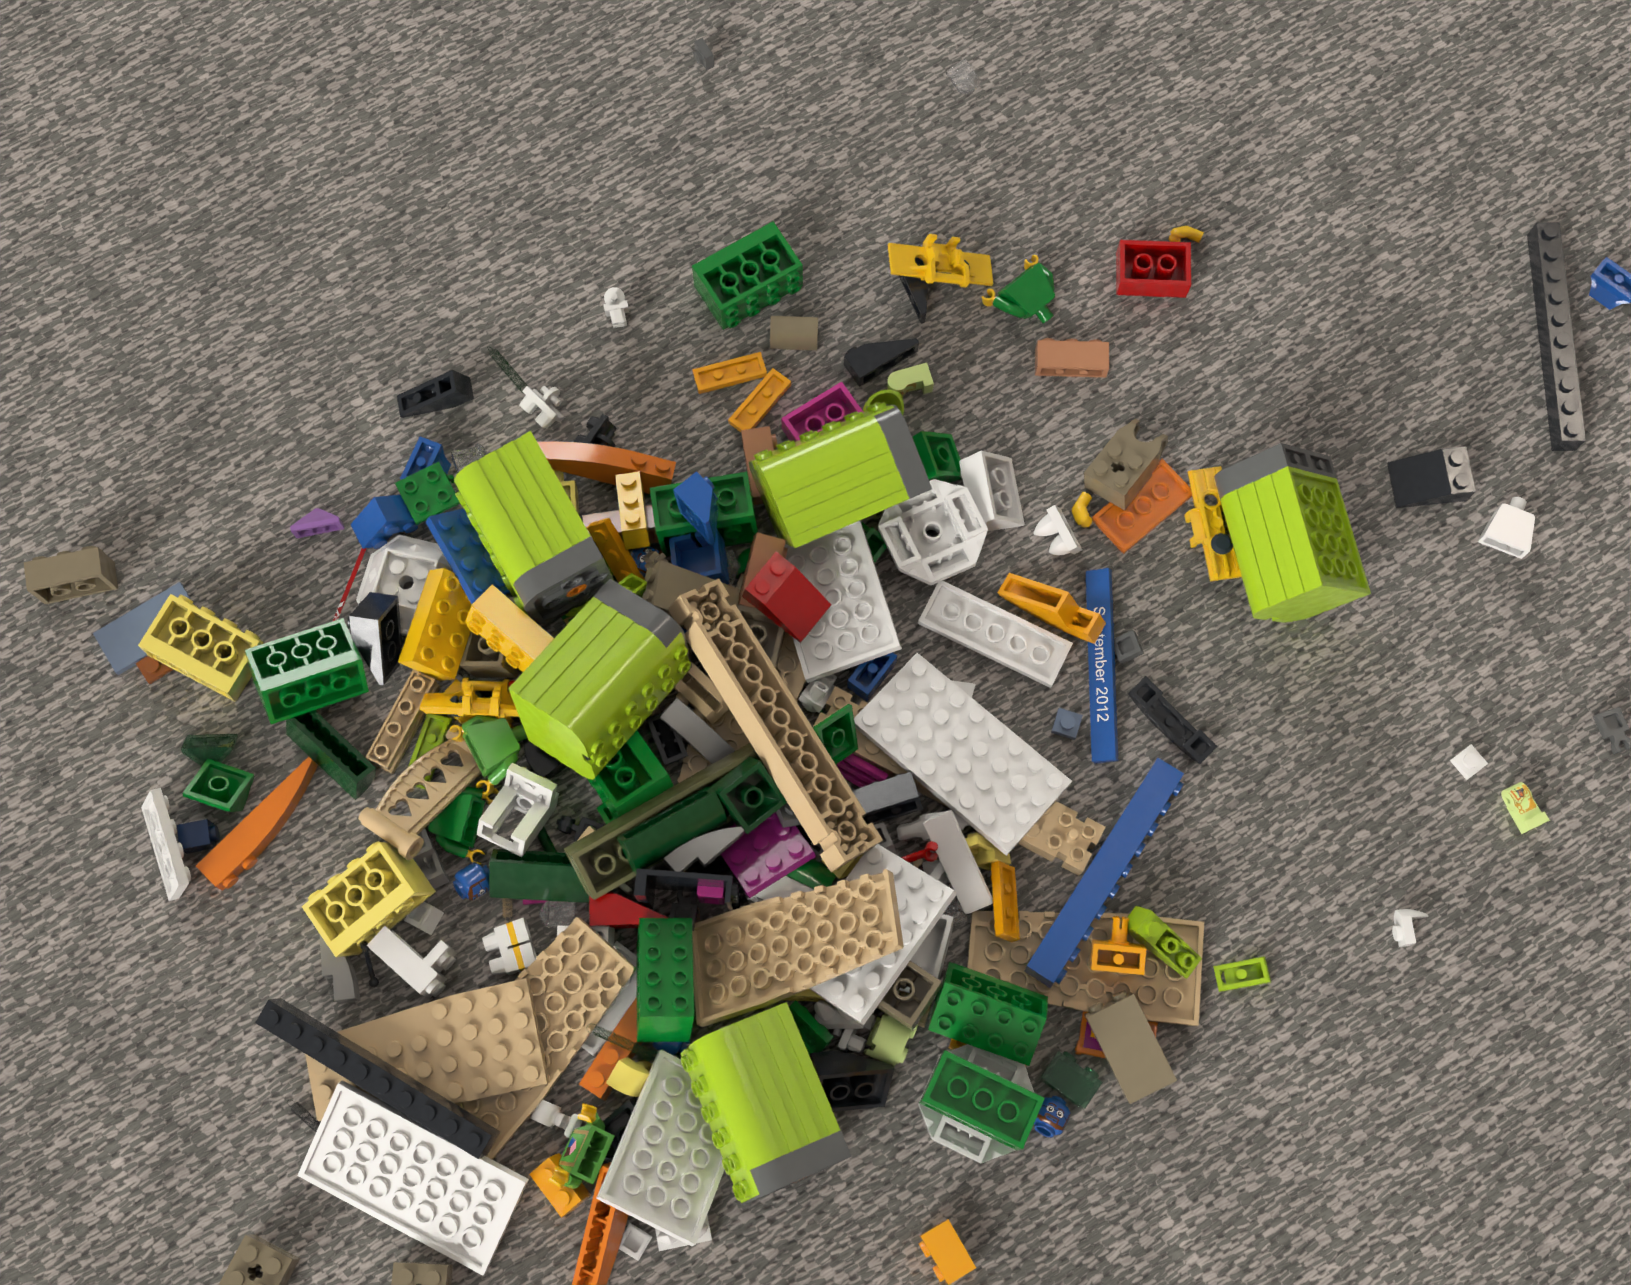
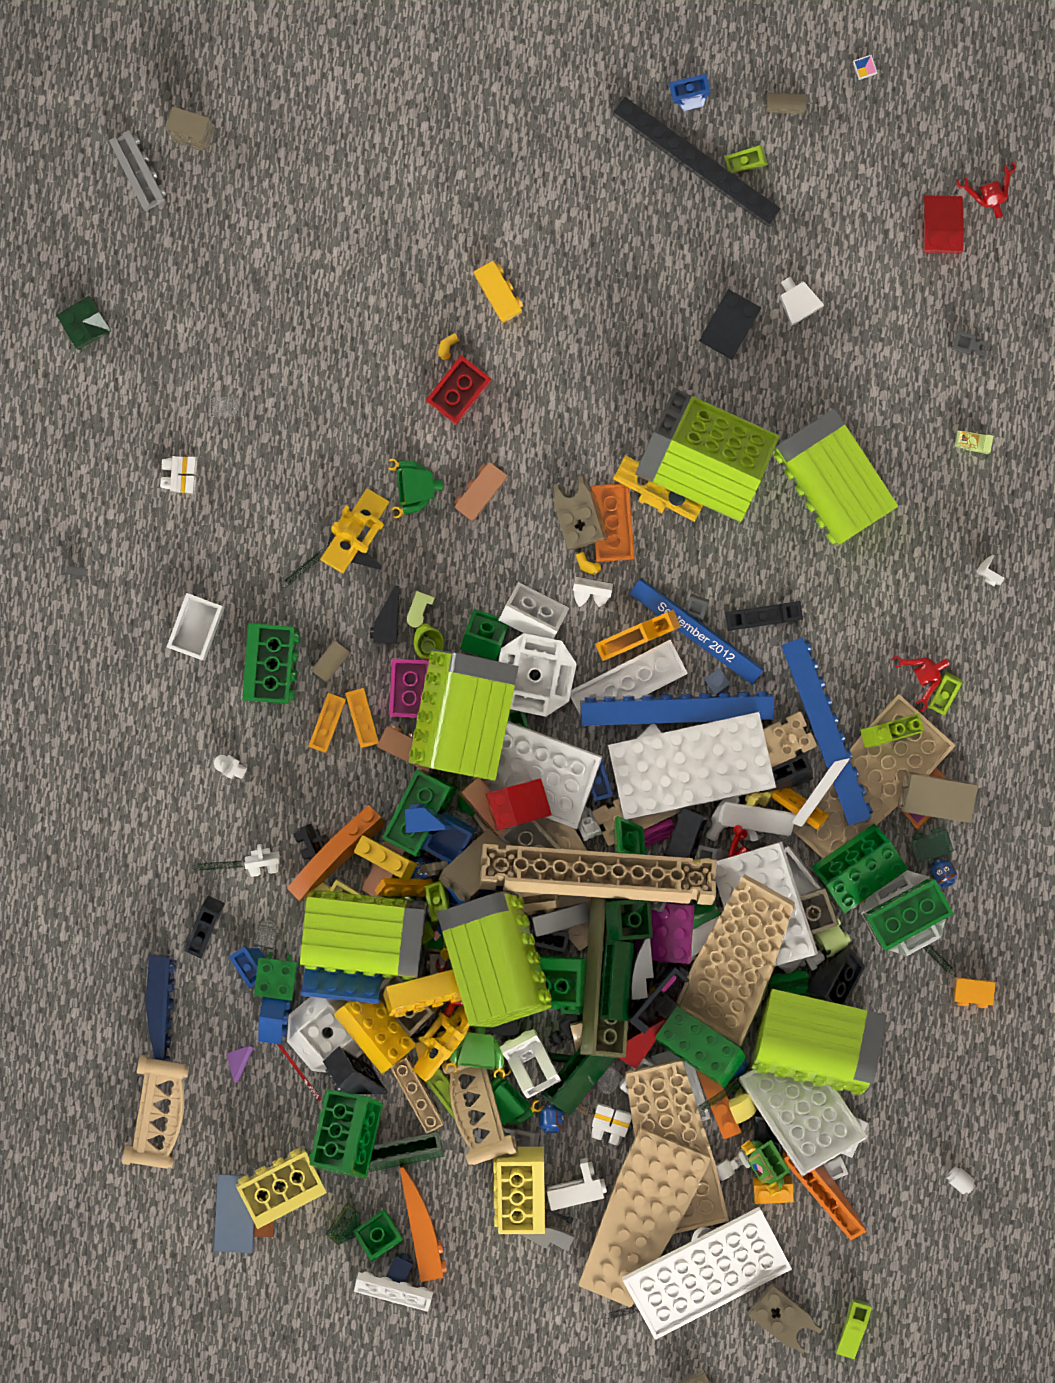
camera: 50 degrees left, 15 degrees up
(70, 575) = (166, 1240): dark tan brick -> none
(155, 491) = (155, 1073): none -> tan piece
(321, 406) = (160, 1002): none -> dark blue wedge
(378, 1077) = (635, 1255): black brick -> none
(424, 917) = (552, 1162): white slope -> none
(732, 187) = (195, 627): none -> white piece
(867, 248) = (305, 564): none -> dark green piece
(869, 83) = (177, 482): none -> white hips
(956, 1182) = (937, 953): none -> dark green piece
(1004, 695) = (674, 709): none -> blue brick
(1031, 866) = (791, 773): none -> black slope
(1037, 907) = (819, 792): none -> white sticker
(1117, 952) = (880, 764): light orange brick -> none
(1248, 936) = (926, 673): none -> red piece
(1276, 242) = (498, 291): none -> yellow brick
(1376, 681) = (834, 477): none -> lime piece
(1468, 762) = (921, 450): white plate -> none
(1599, 384) = (746, 159): none -> lime slope

